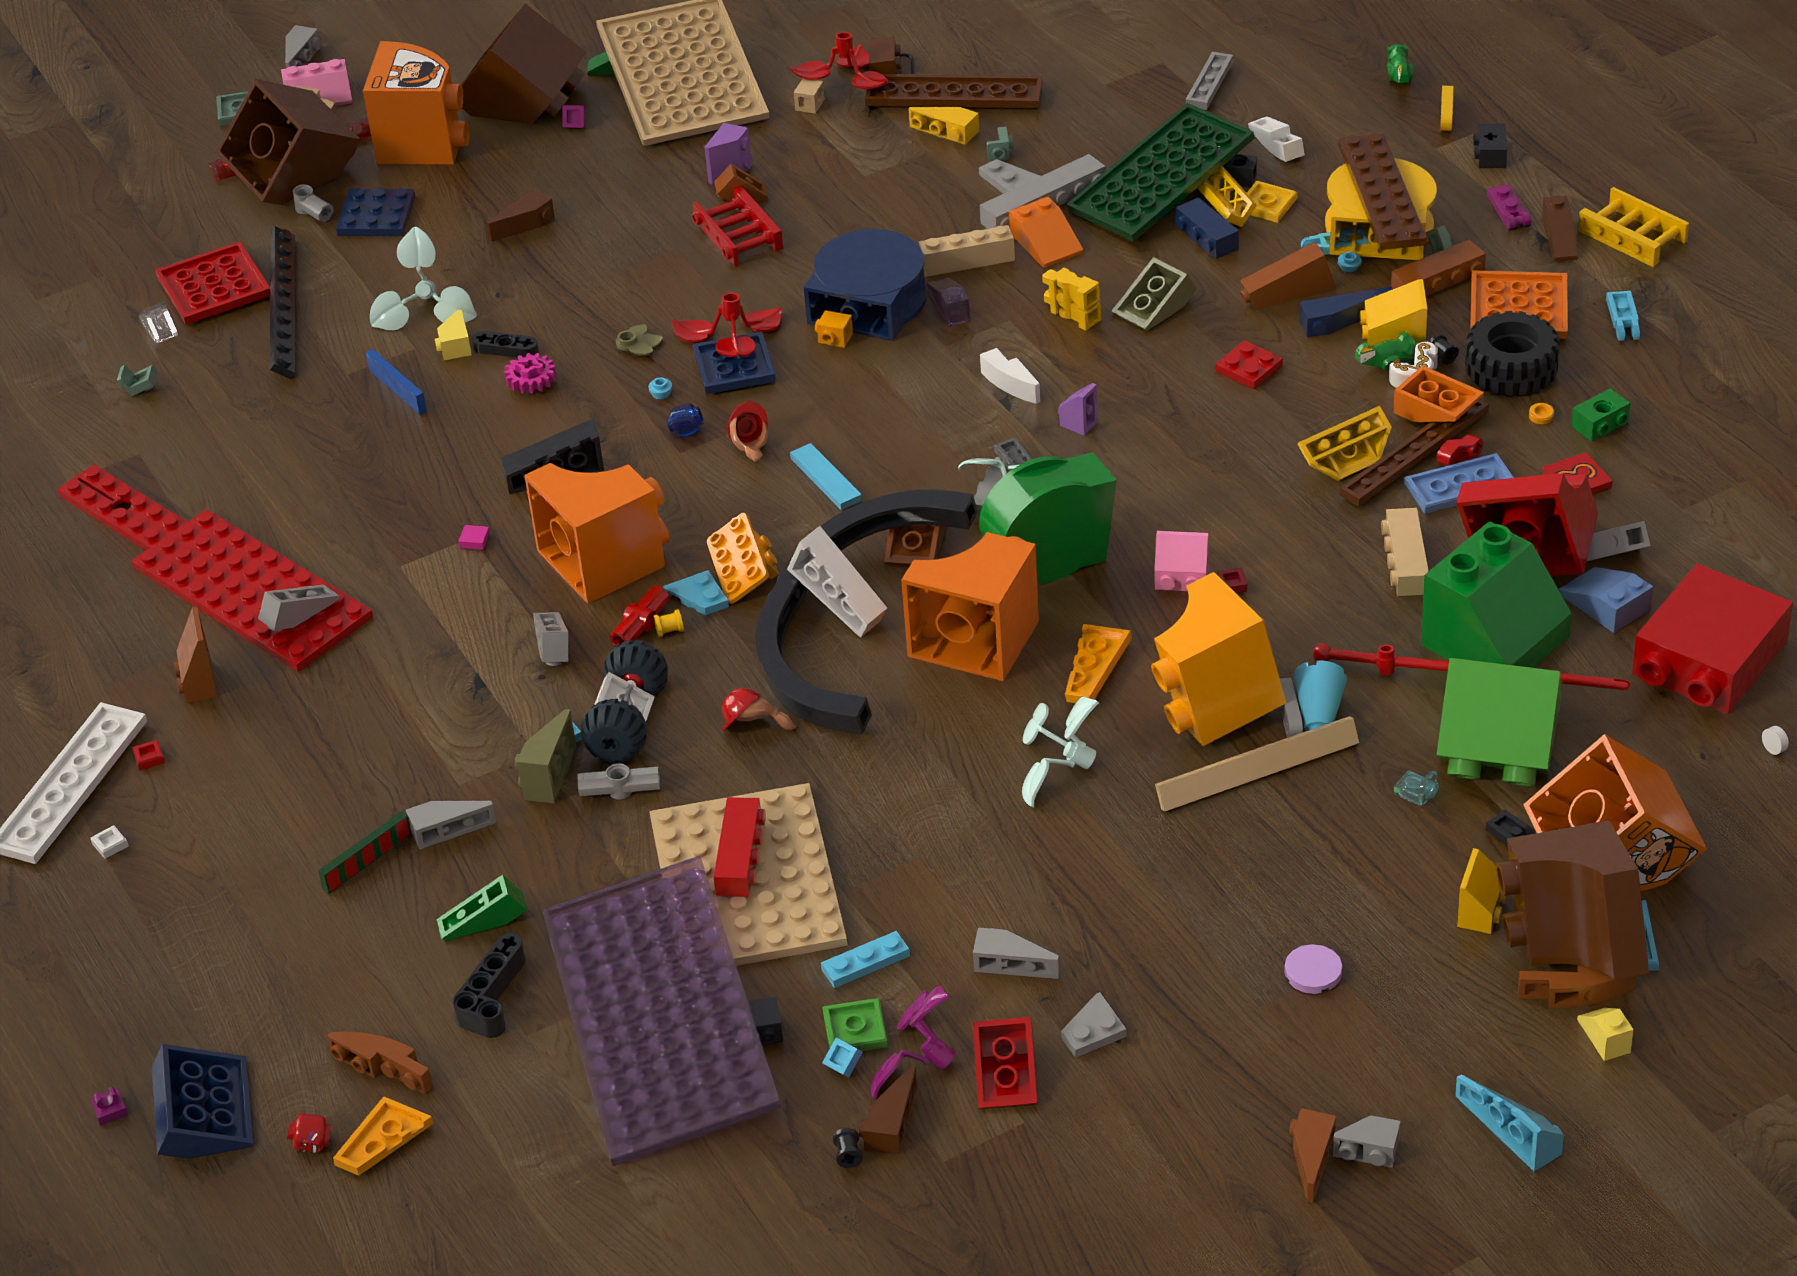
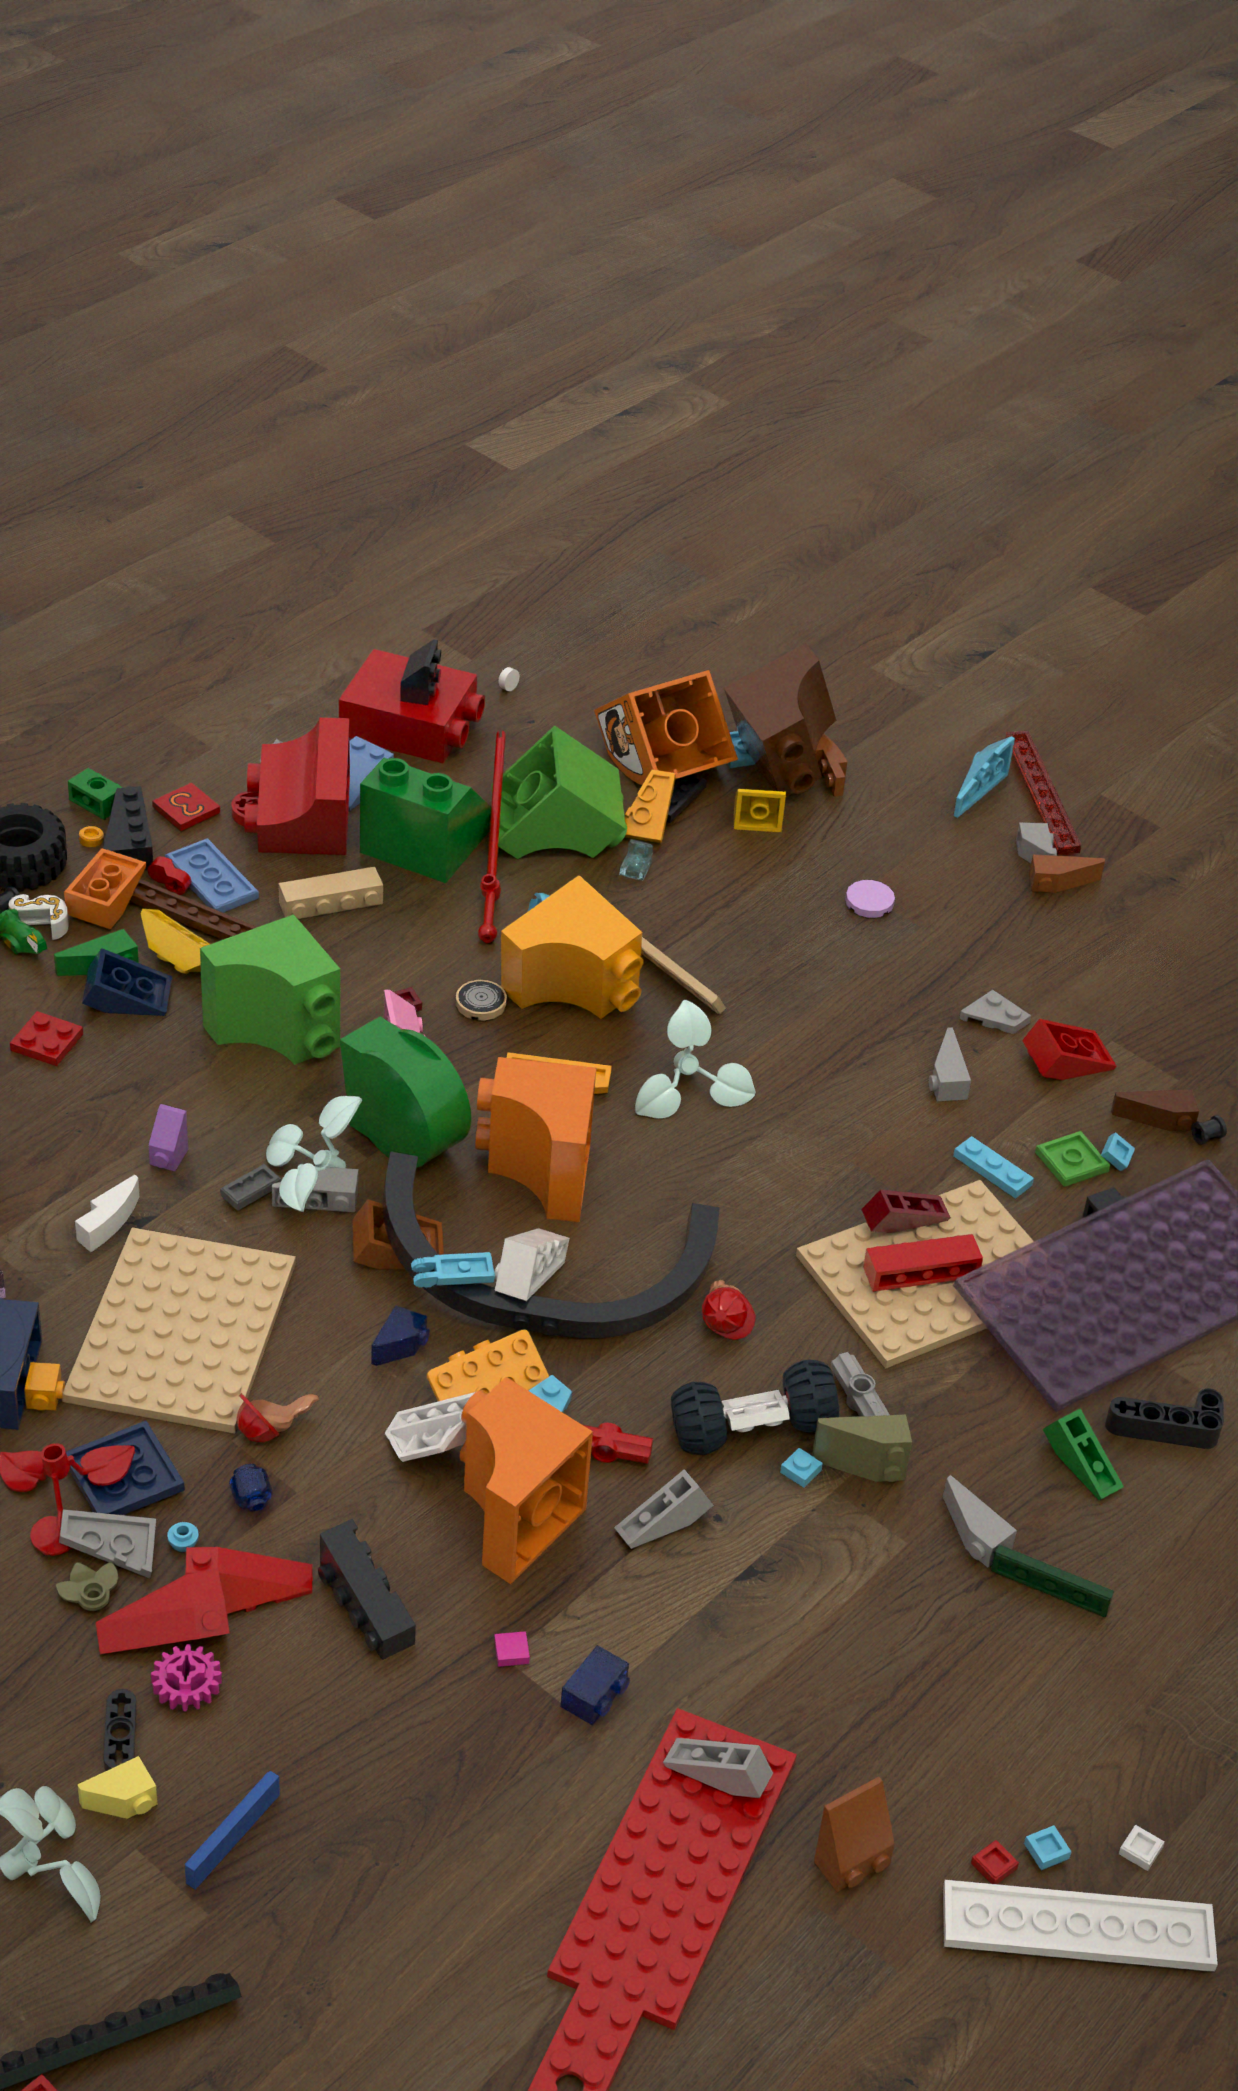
camera: 115 degrees left, 0 degrees up
(138, 782) = (1047, 1847): none -> medium azure plate
(413, 568) = (595, 1685): none -> clear blue brick
(579, 370) = (175, 1613): none -> red wedge
(606, 402) = (251, 1577): none -> red wedge
(668, 623) = (606, 1412): yellow bush -> none
(672, 350) = (111, 1537): none -> light grey wing
(690, 514) = (428, 1428): none -> white wedge
(805, 849) = (903, 1211): none -> dark red slope
(806, 514) = (399, 1336): none -> clear blue slope
(826, 476) = (314, 1342): medium azure tile -> none
(831, 518) = (453, 1269): none -> medium azure hinge
(875, 409) = (180, 1330): none -> tan plate
(933, 1048) = (1087, 1052): magenta plant -> none
(1224, 468) = (272, 991): none -> bright green brick
(1298, 406) = (125, 986): none -> dark blue slope
(1348, 396) = (78, 958): none -> green slope
(1481, 1183) = (1044, 793): none -> clear red plate
(1490, 799) = (650, 809): none -> light orange wing
(1532, 428) = (128, 826): none -> black wedge
(1608, 1032) = (864, 740): light yellow slope -> none
(1708, 613) = (421, 674): none -> black slope

